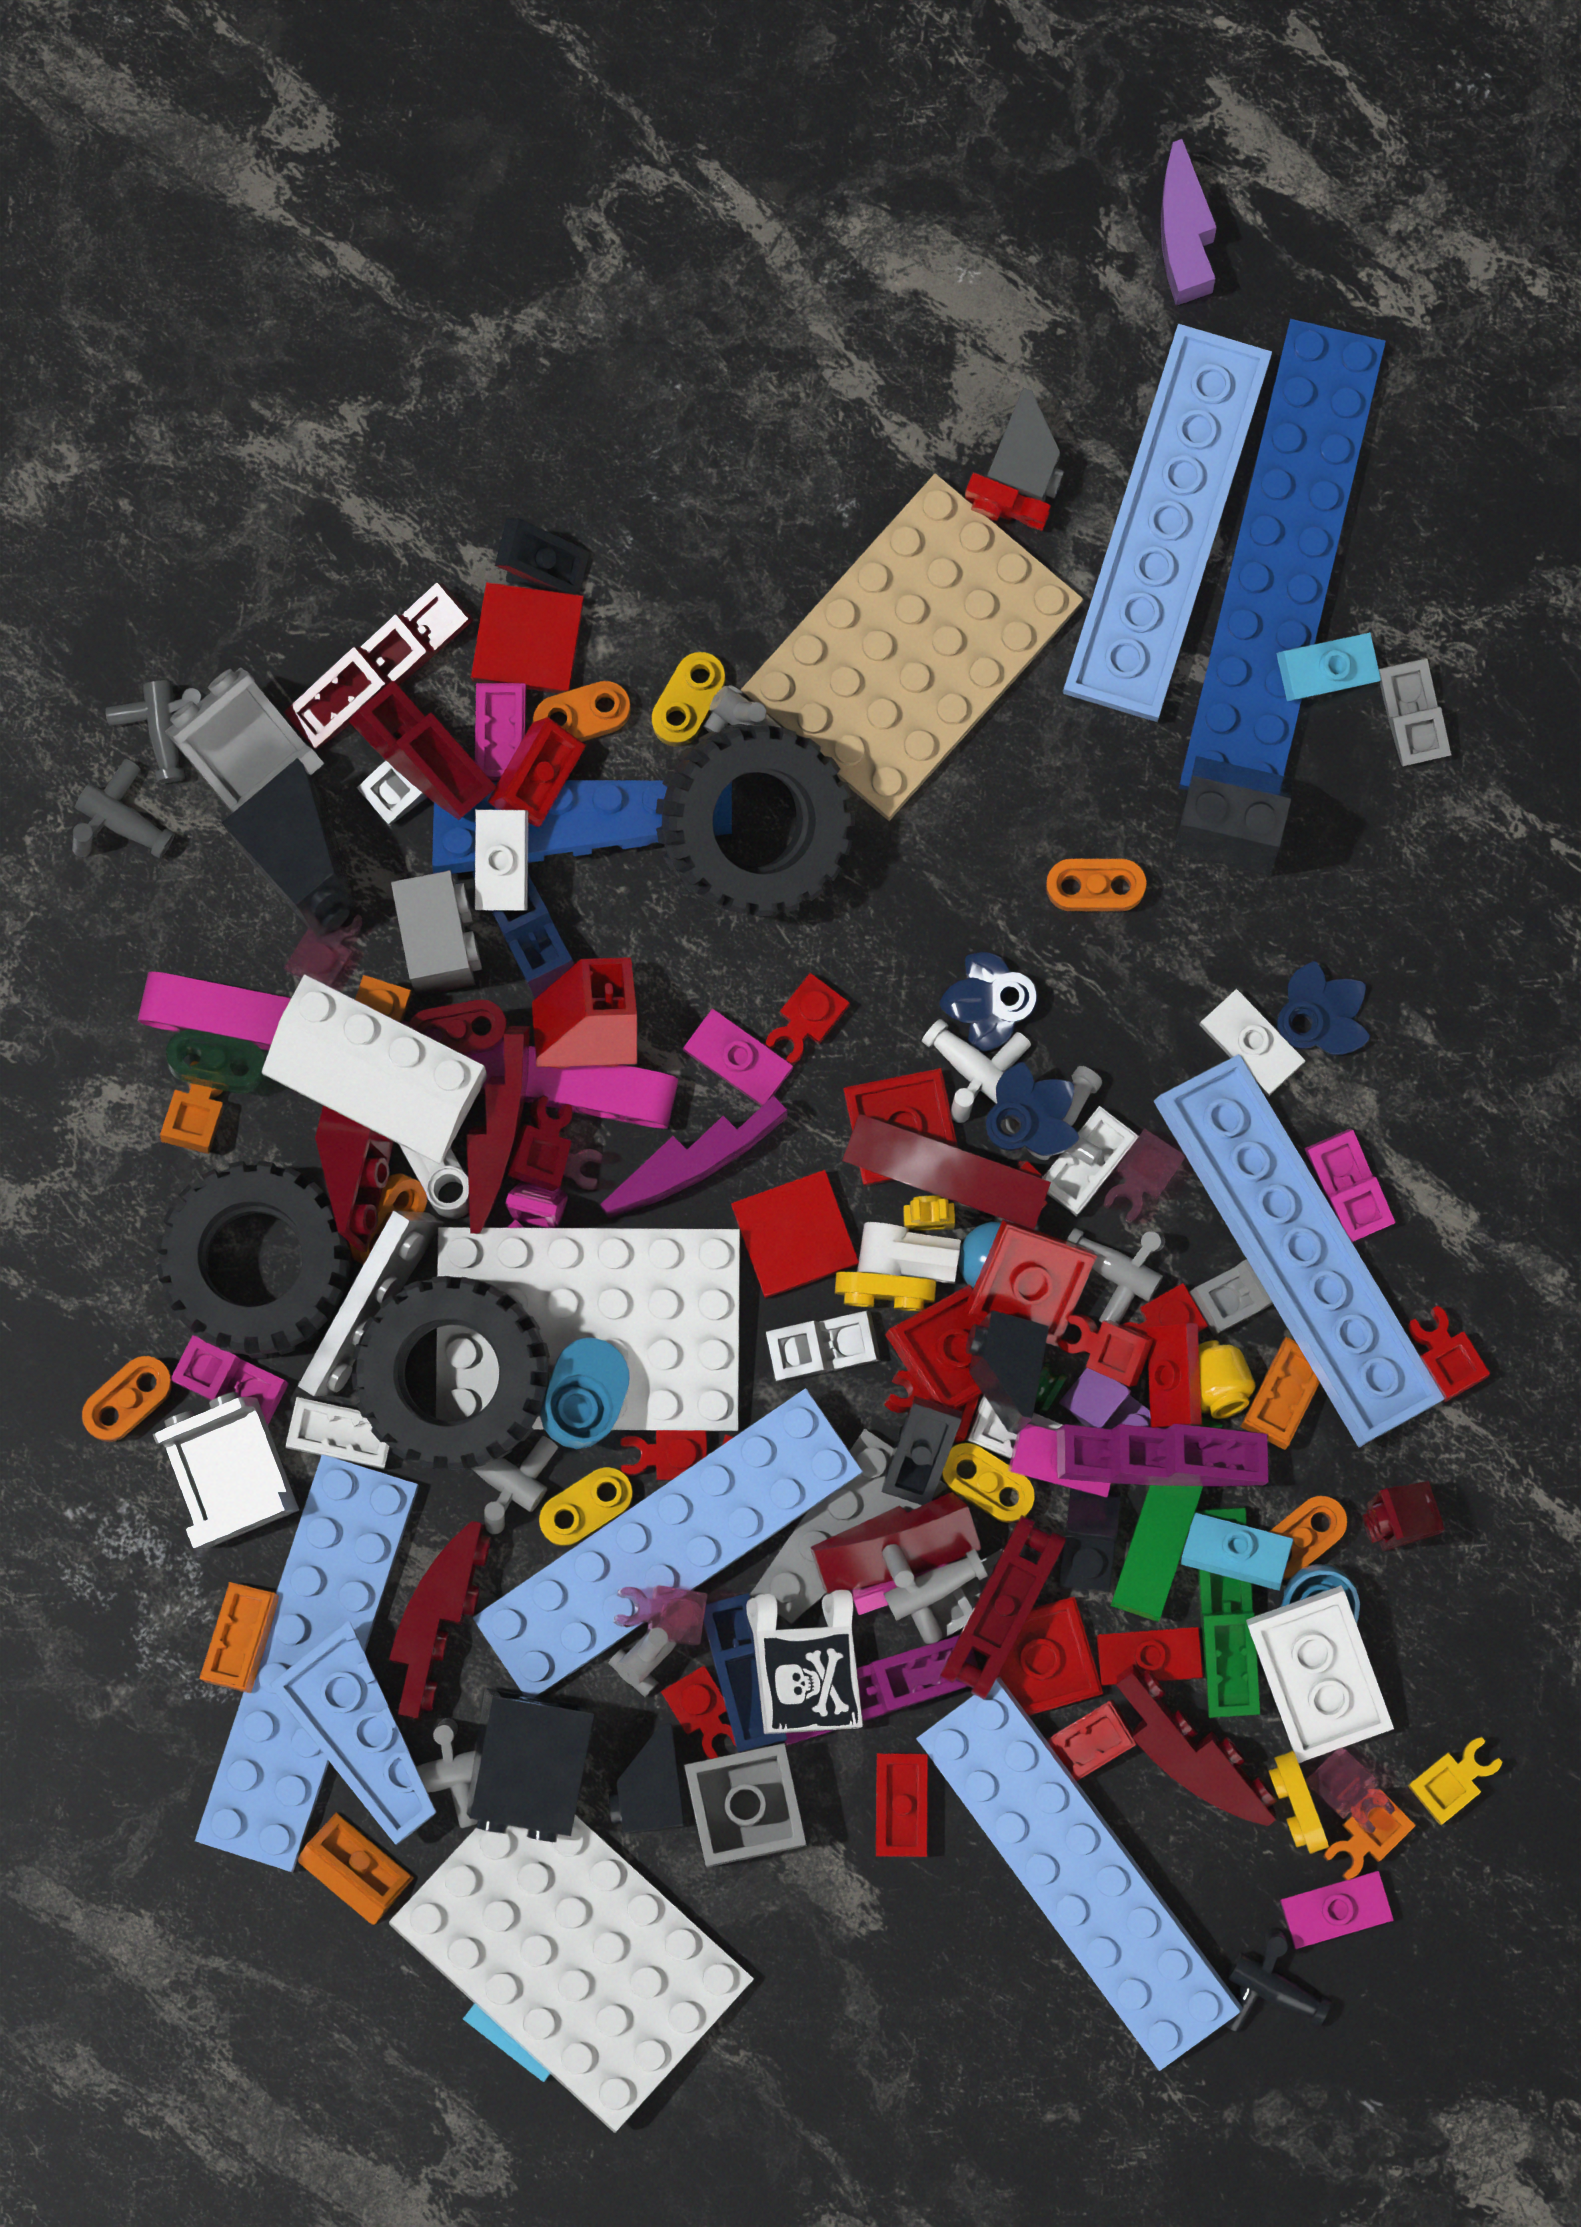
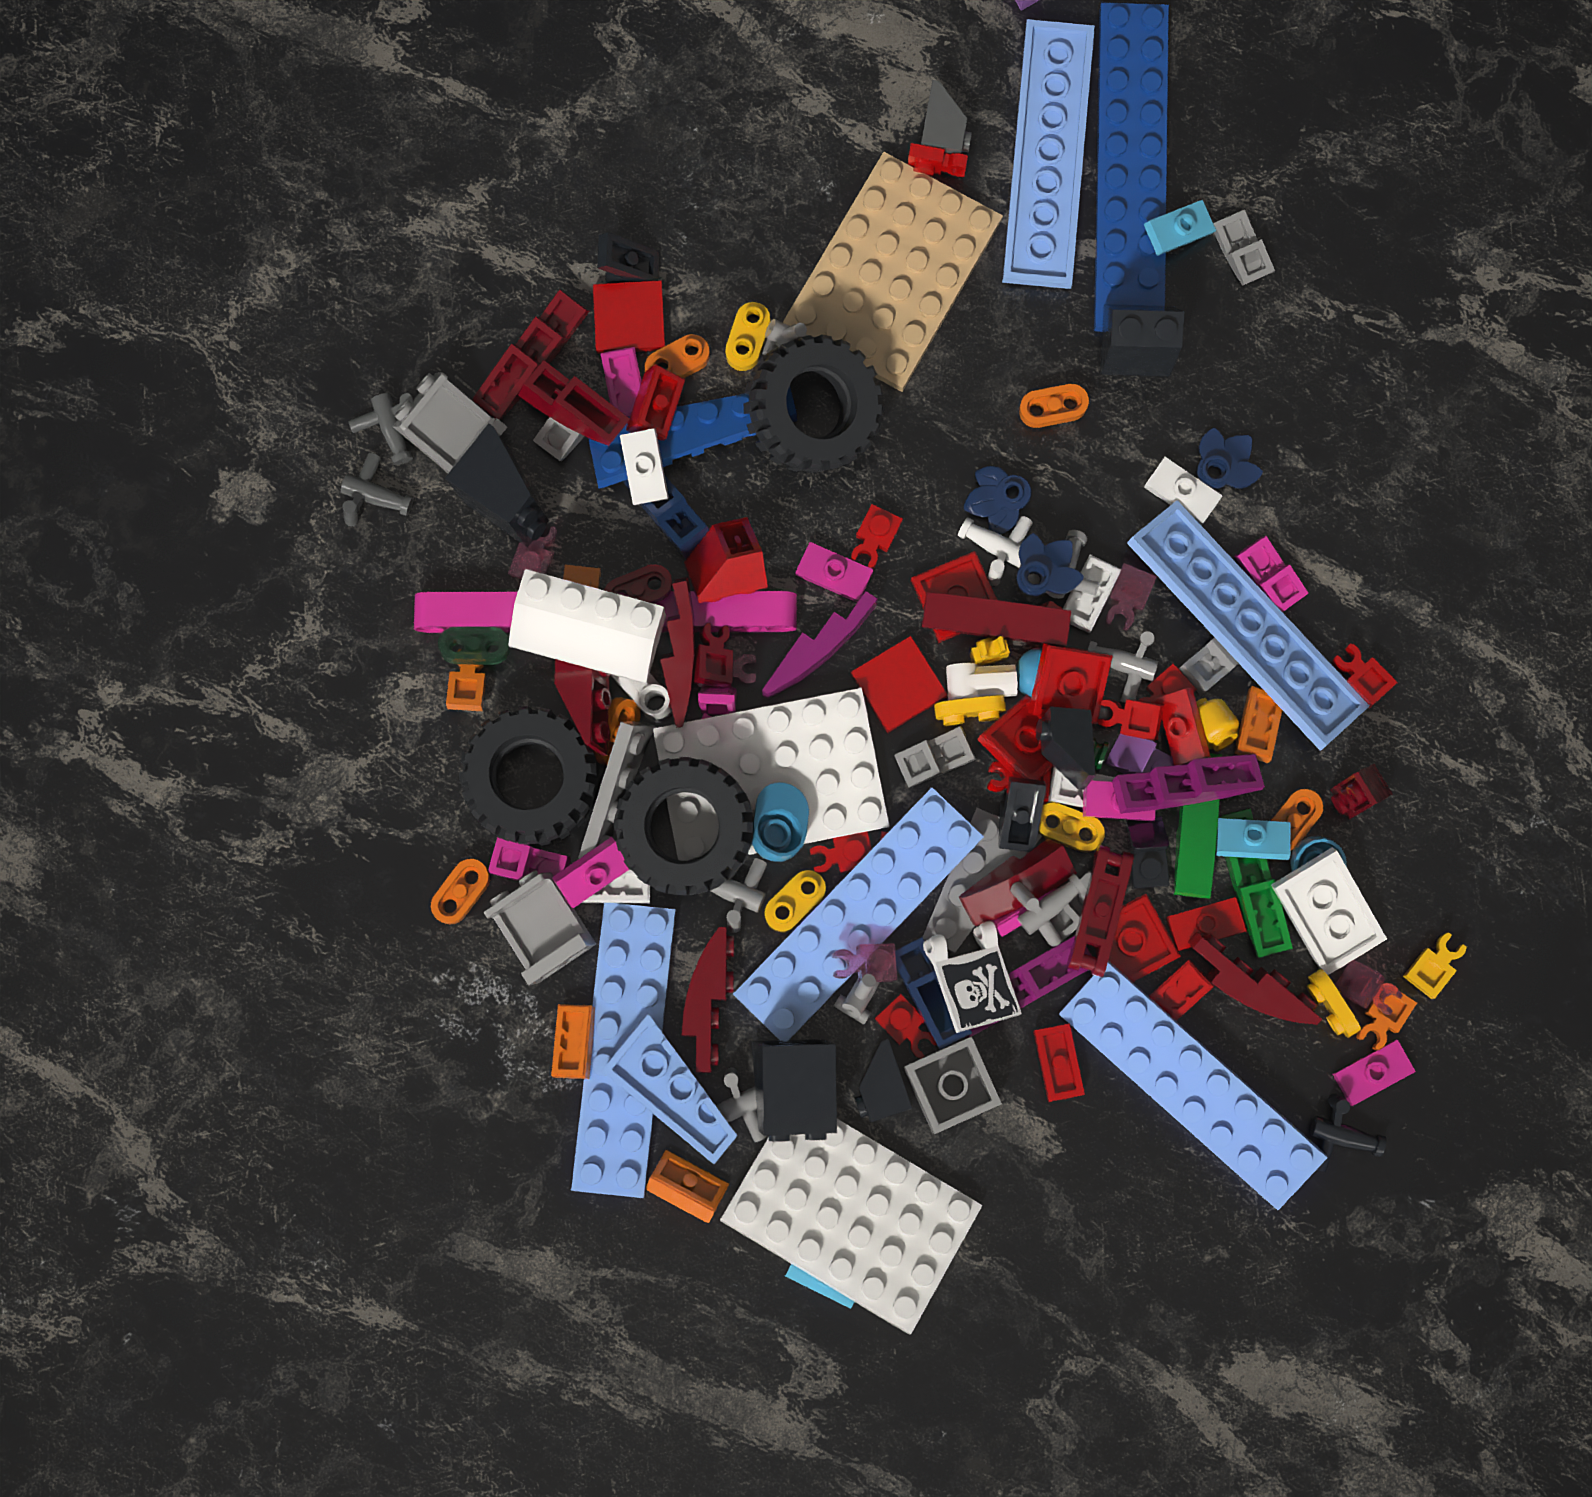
camera: 15 degrees left, 0 degrees up
(310, 1410) = (591, 872): none -> dark pink plate
(433, 933) = (605, 520): light grey brick -> none

